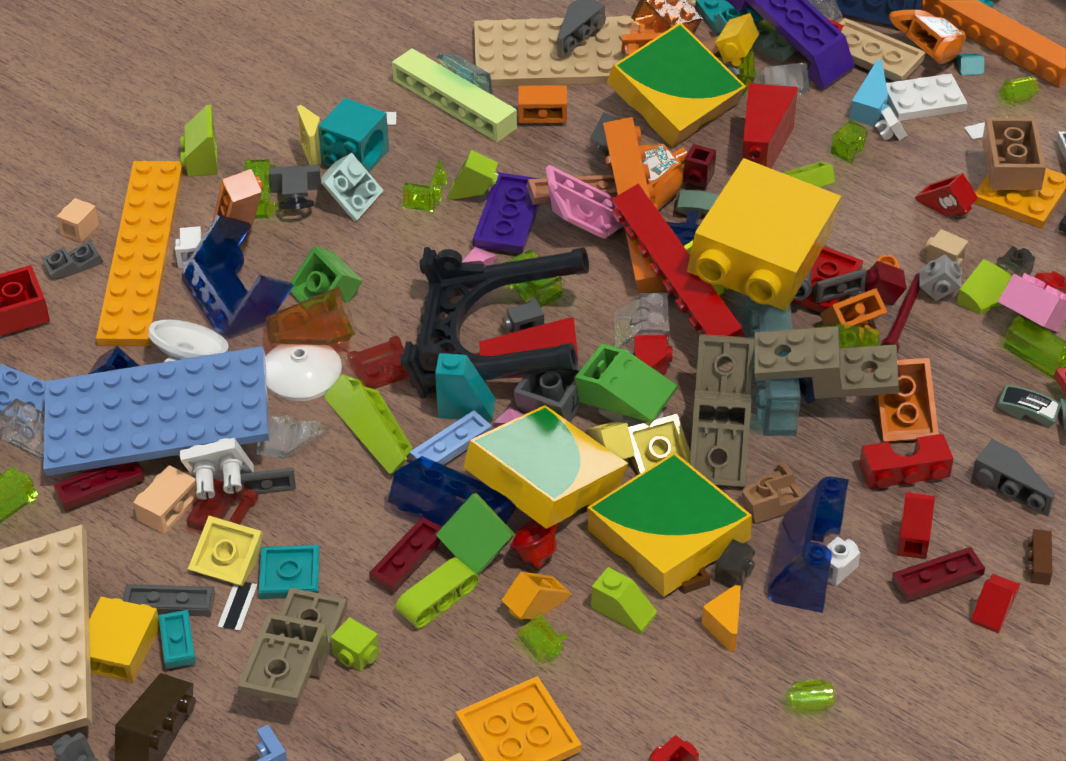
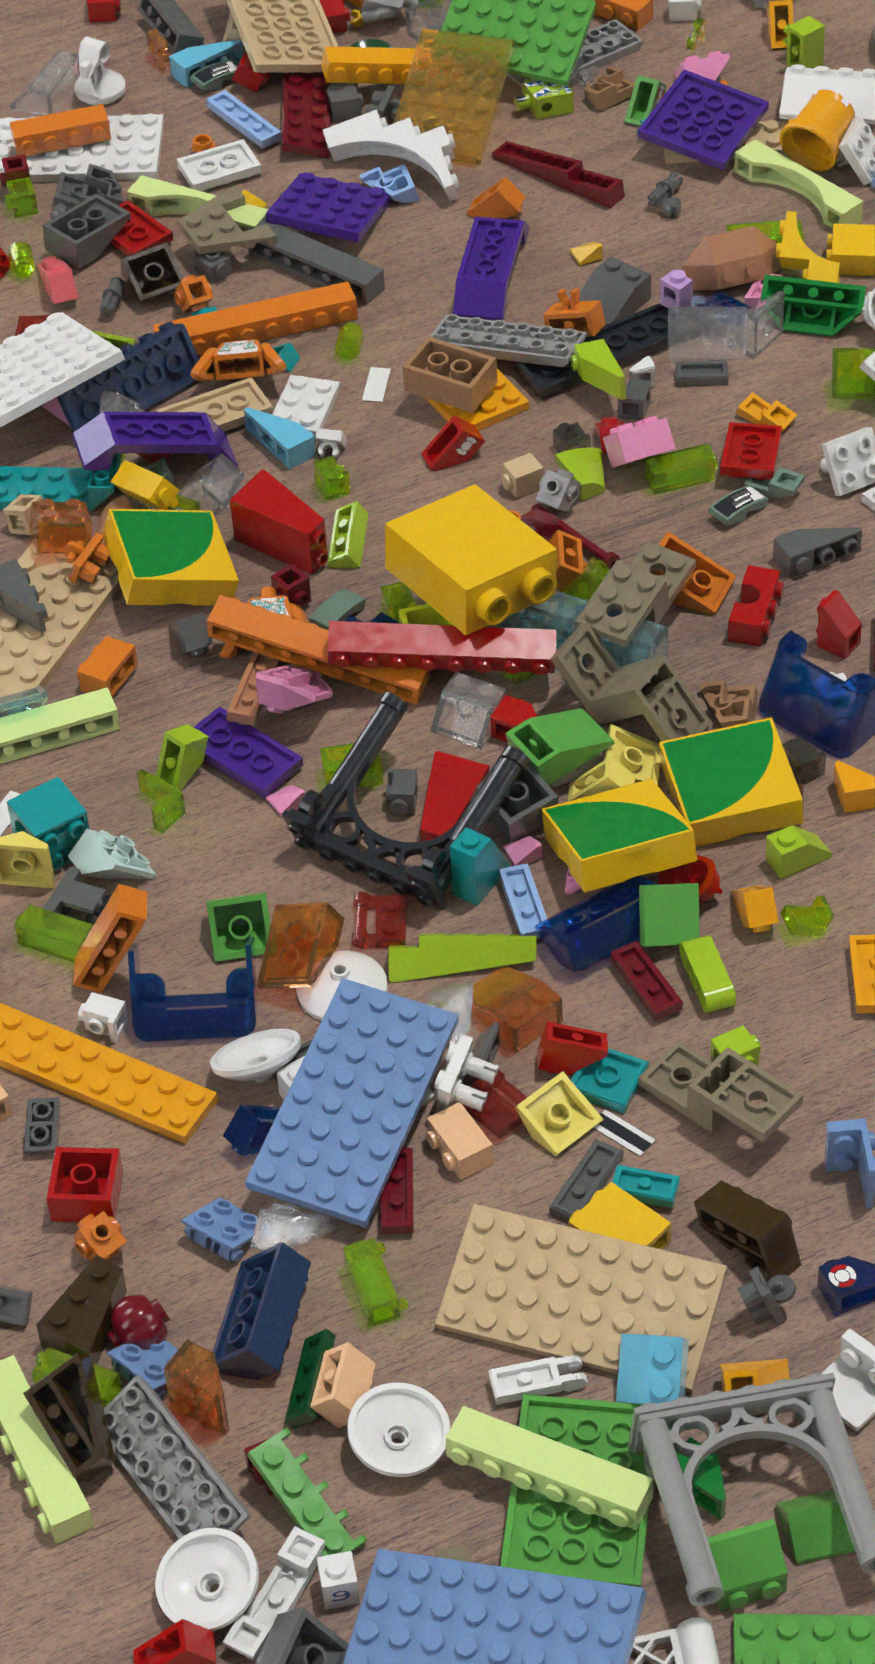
camera: 60 degrees left, 0 degrees up
(294, 526) = (569, 1048): none -> red slope
(329, 479) = (518, 1004): none -> clear orange slope

